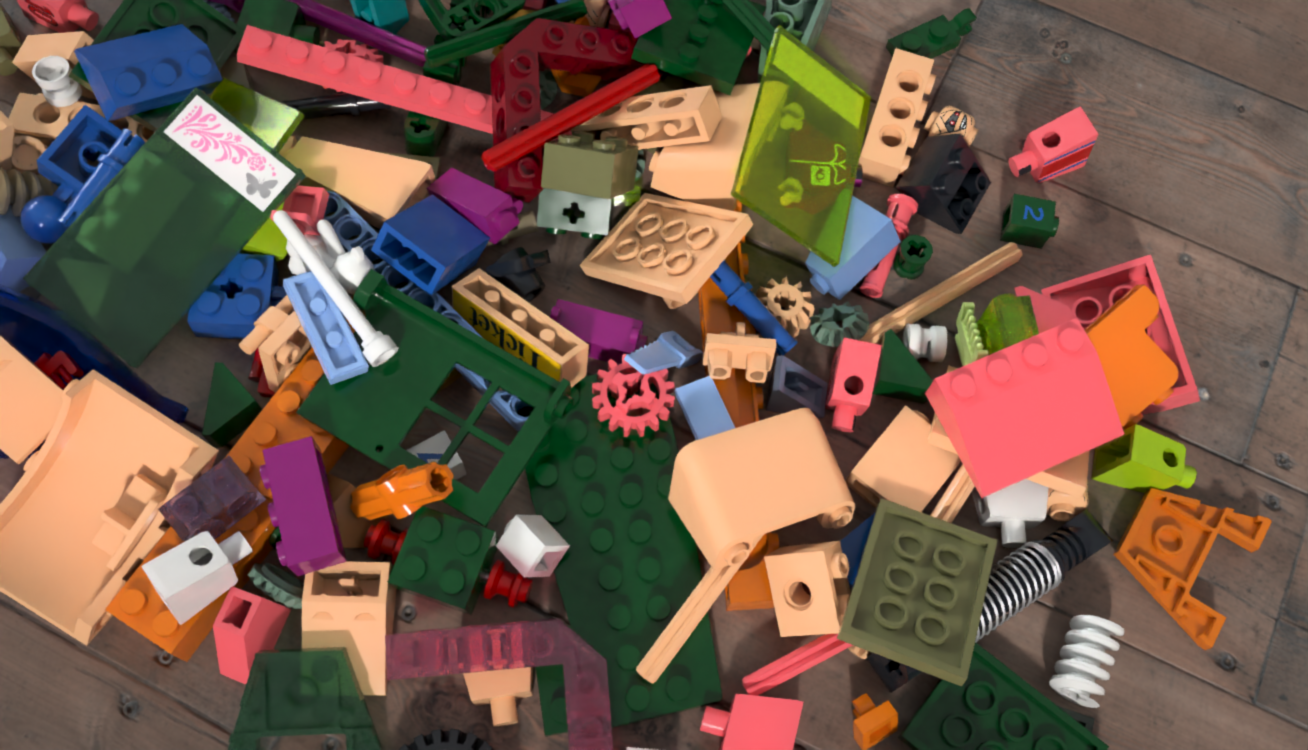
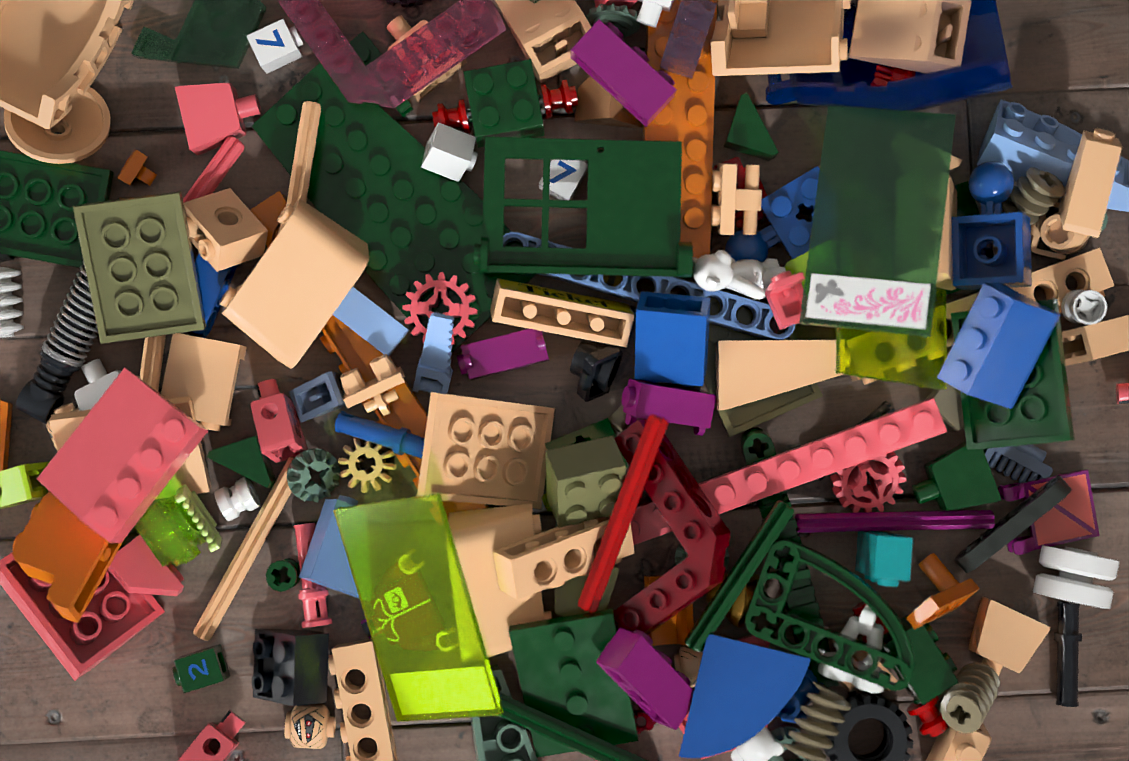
camera: 155 degrees right, 20 degrees up
(109, 166) = (964, 241): blue pin -> none
(325, 328) = (701, 214): light blue tile -> none
(377, 347) = (650, 220): white piece -> none
(402, 491) = (559, 124): orange piece -> none

